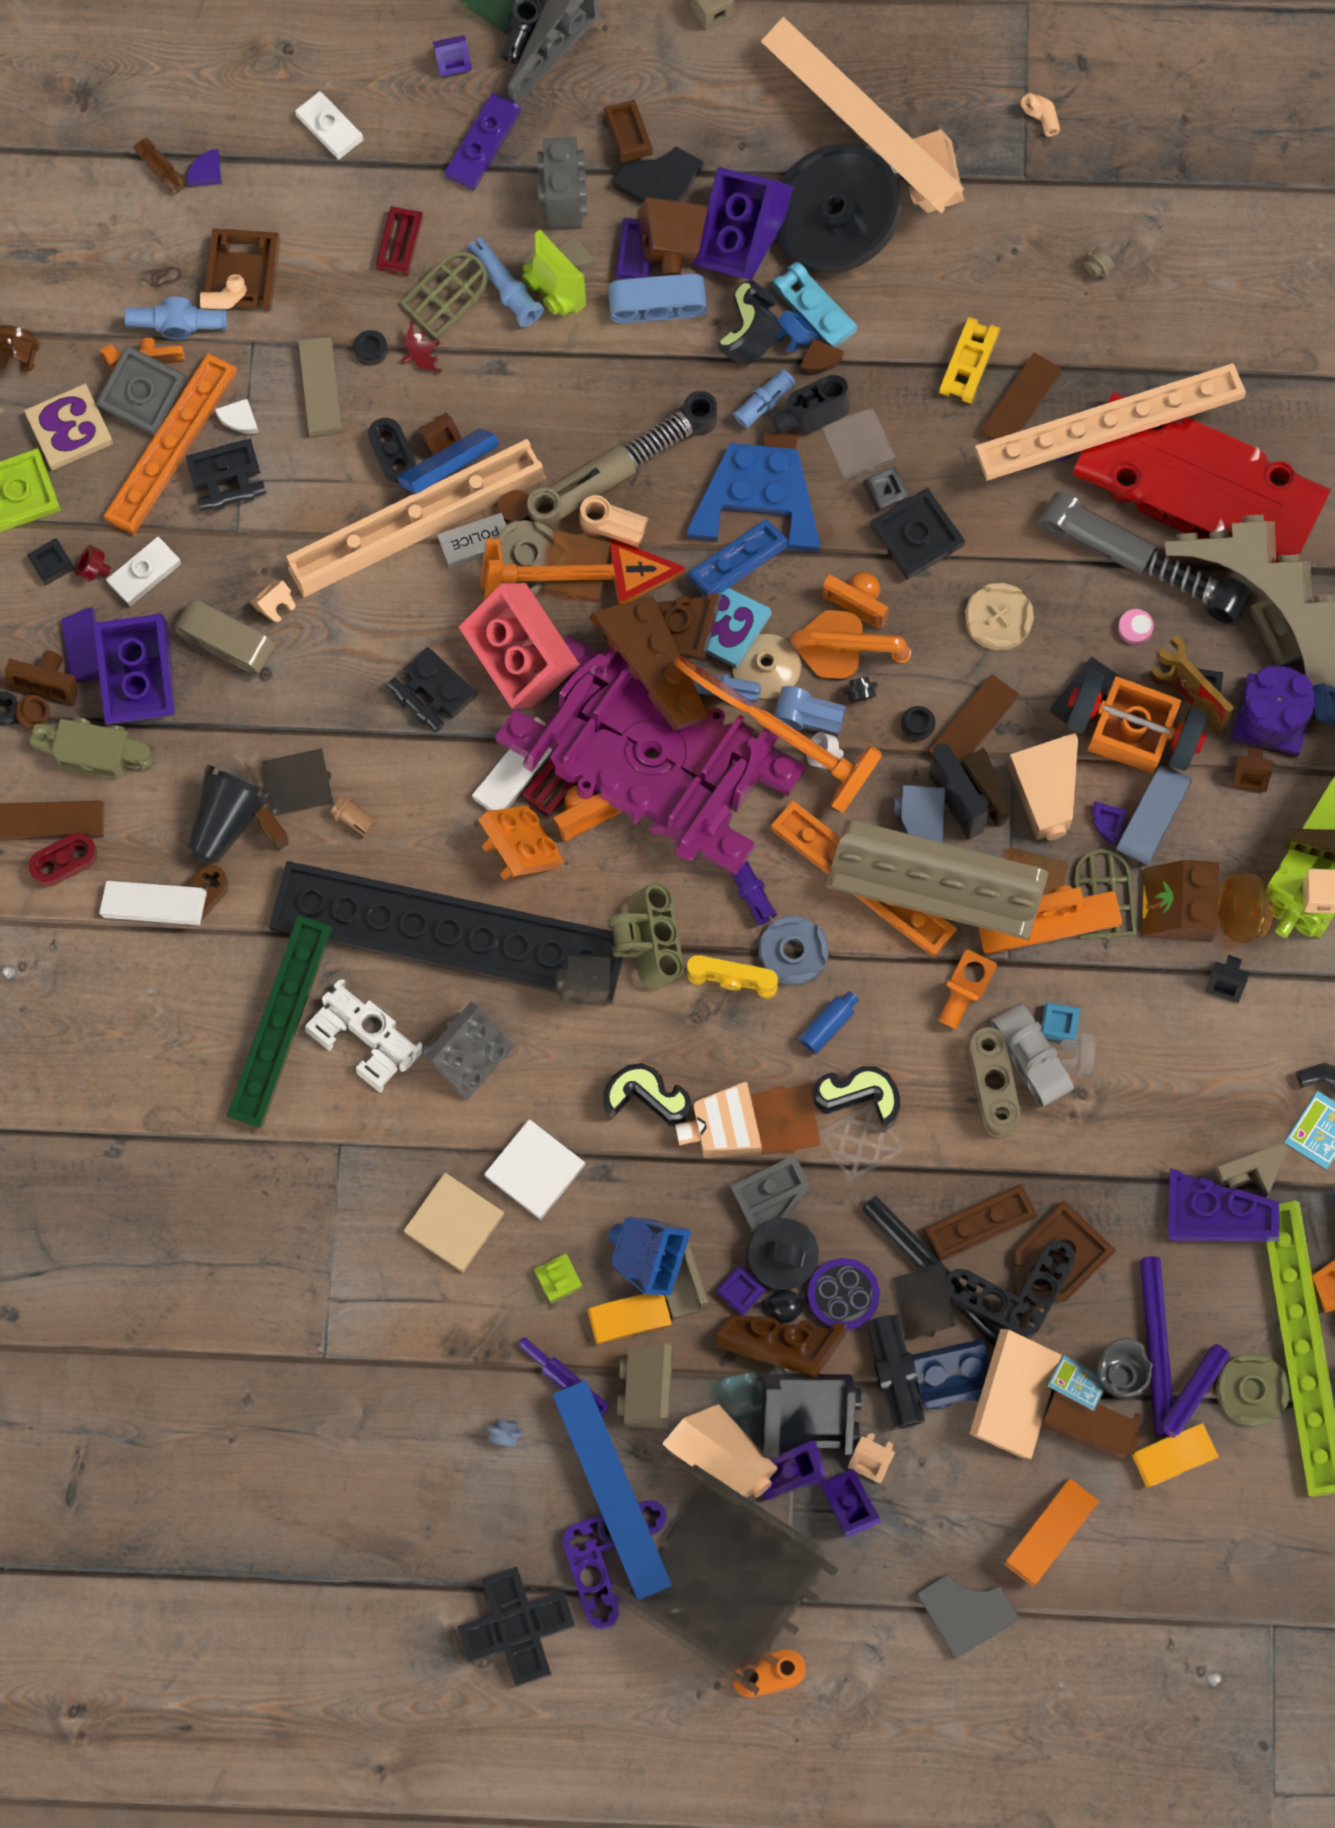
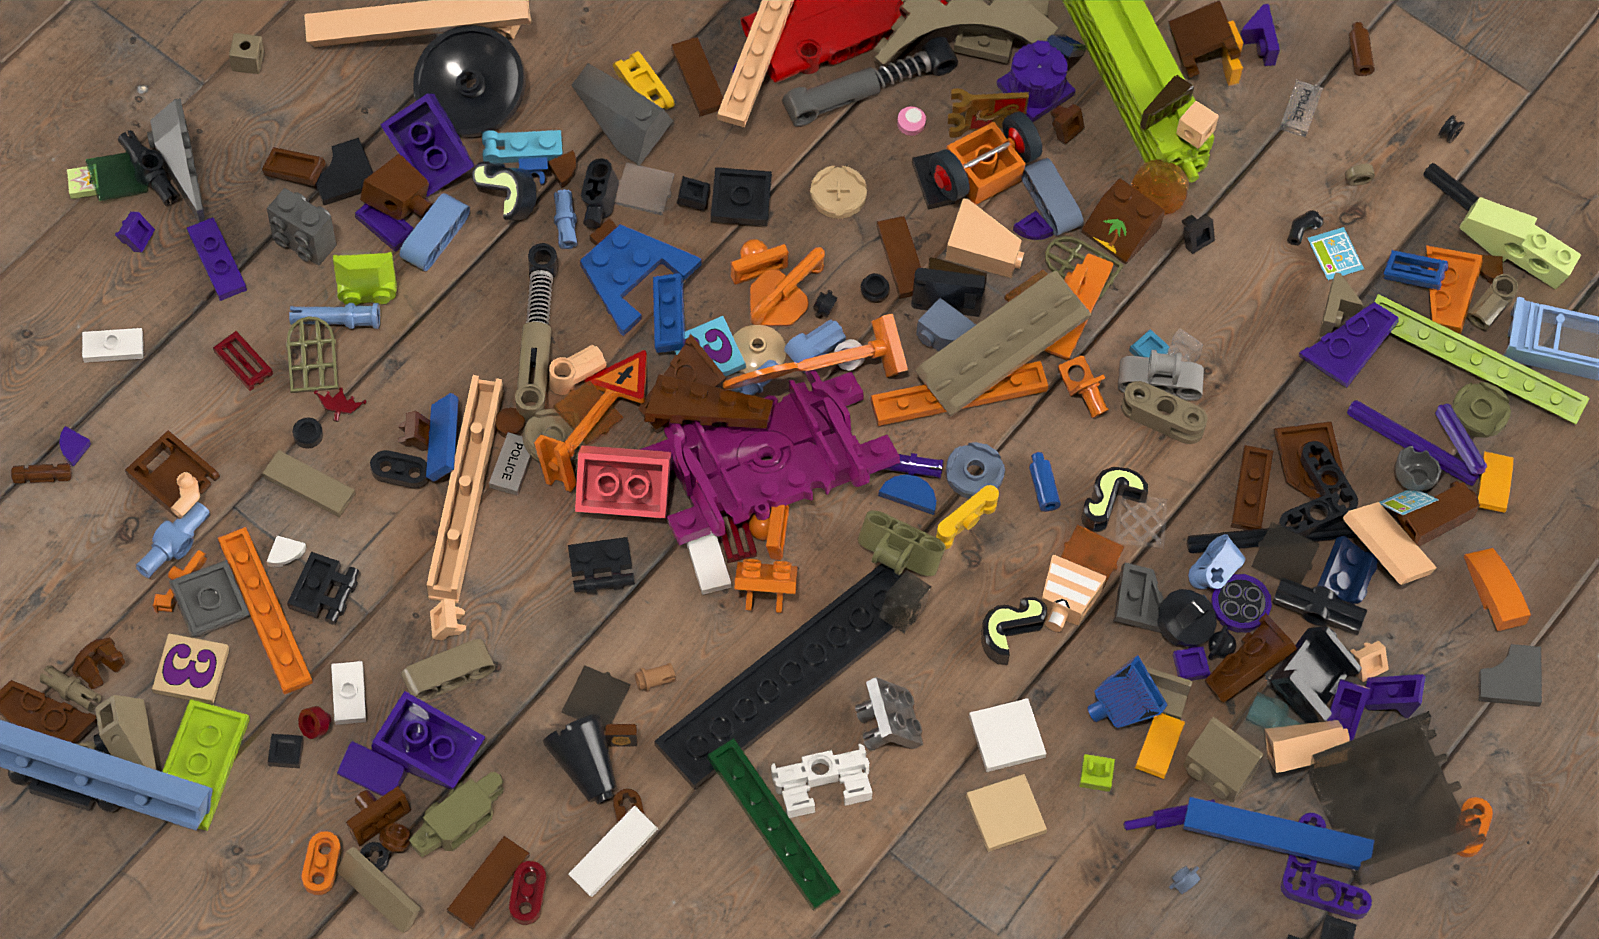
camera: 60 degrees left, 10 degrees down
(723, 908) = (910, 492): none -> blue tile
(866, 1243) = (1216, 564): none -> medium blue piece
(919, 366) = (624, 115): none -> dark grey wedge

